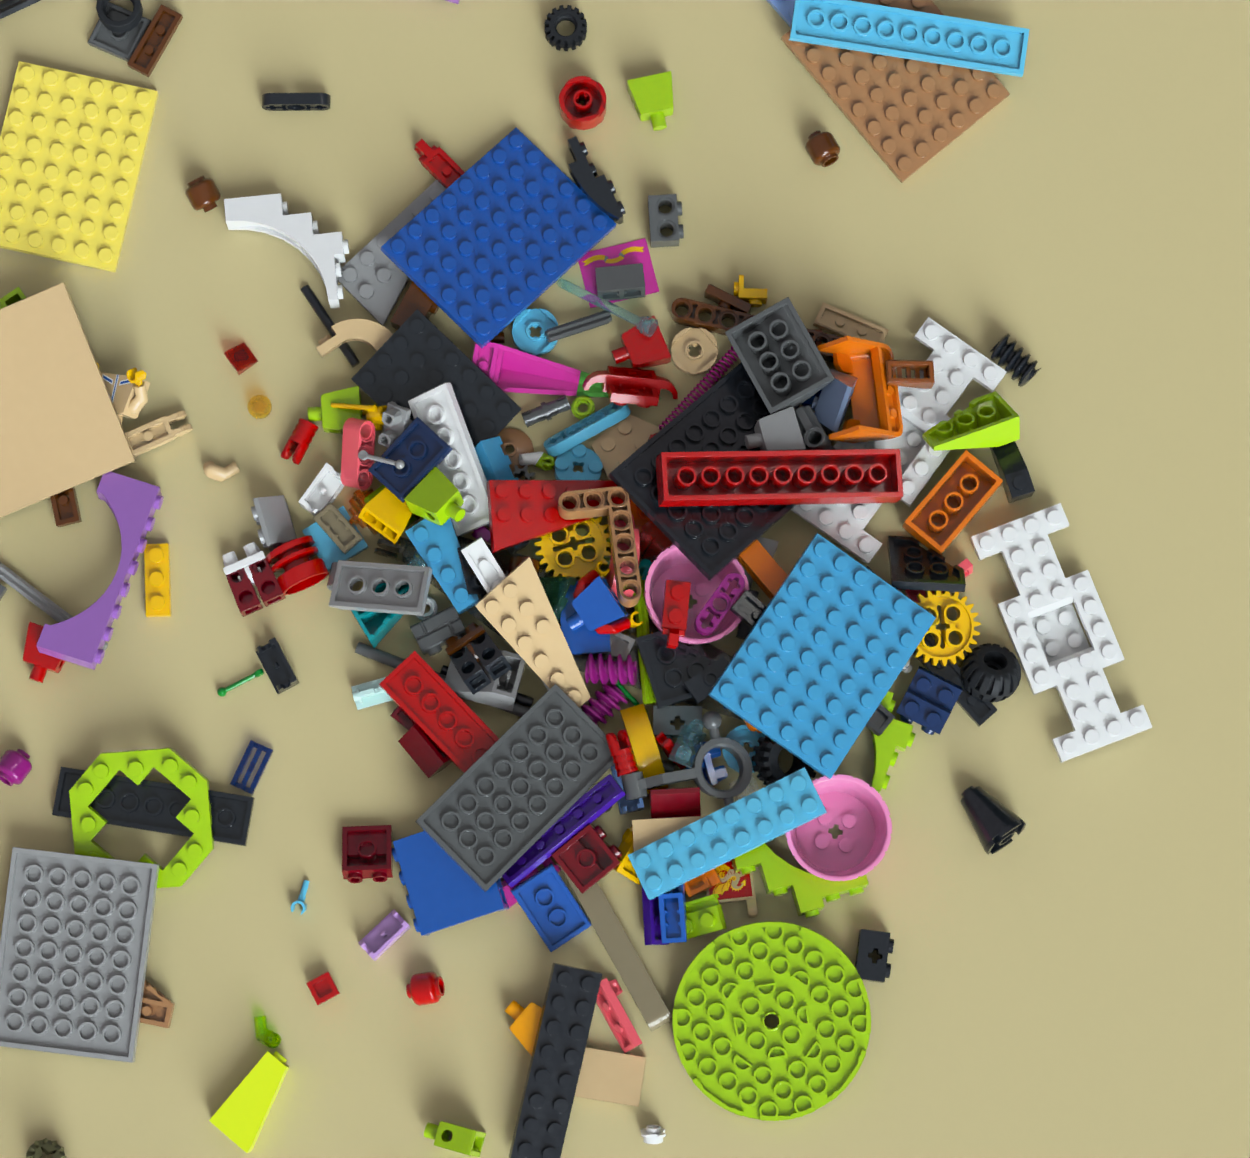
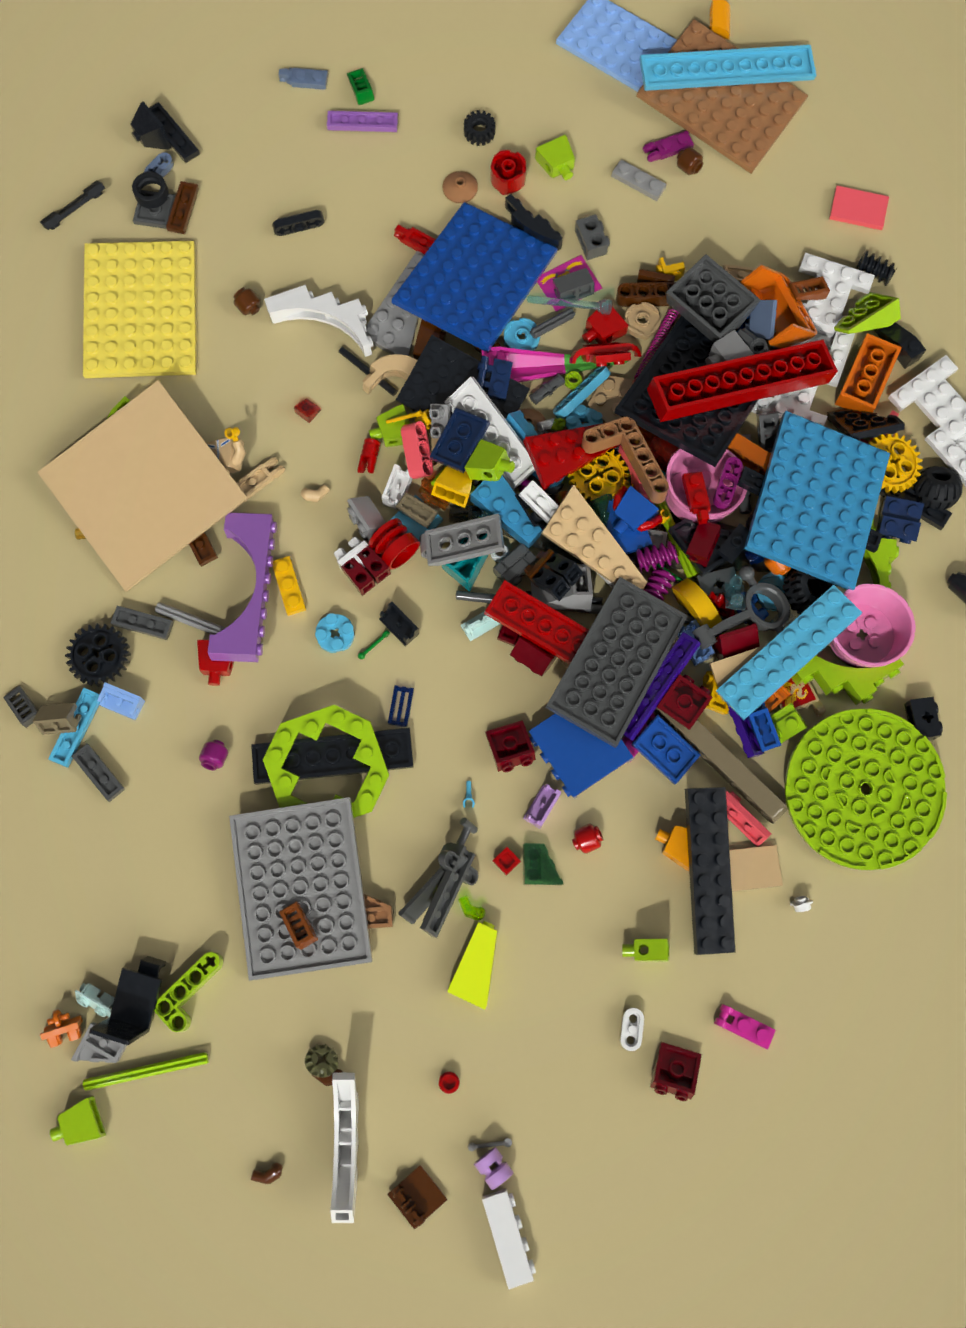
camera: 15 degrees left, 5 degrees down
(67, 995) = (308, 940): none -> dark orange slope
(211, 655) = (330, 623): none -> medium azure plate
(239, 998) = (444, 884): none -> dark grey piece
(259, 406) = (331, 440): clear yellow plate -> none
(359, 1005) = (538, 866): none -> clear green wing
(363, 455) = (422, 446): light grey hinge -> none
(485, 388) = (499, 378): none -> dark blue plate
(518, 113) = (463, 192): none -> medium nougat dish
(621, 753) = (687, 614): red hinge -> none
(669, 670) = (703, 543): none -> dark red hinge
(751, 155) = (639, 180): none -> light grey plate
(799, 536) = (767, 429): none -> dark grey brick
(805, 117) = (668, 146): none -> magenta hinge
(1024, 269) = (859, 207): none -> coral tile

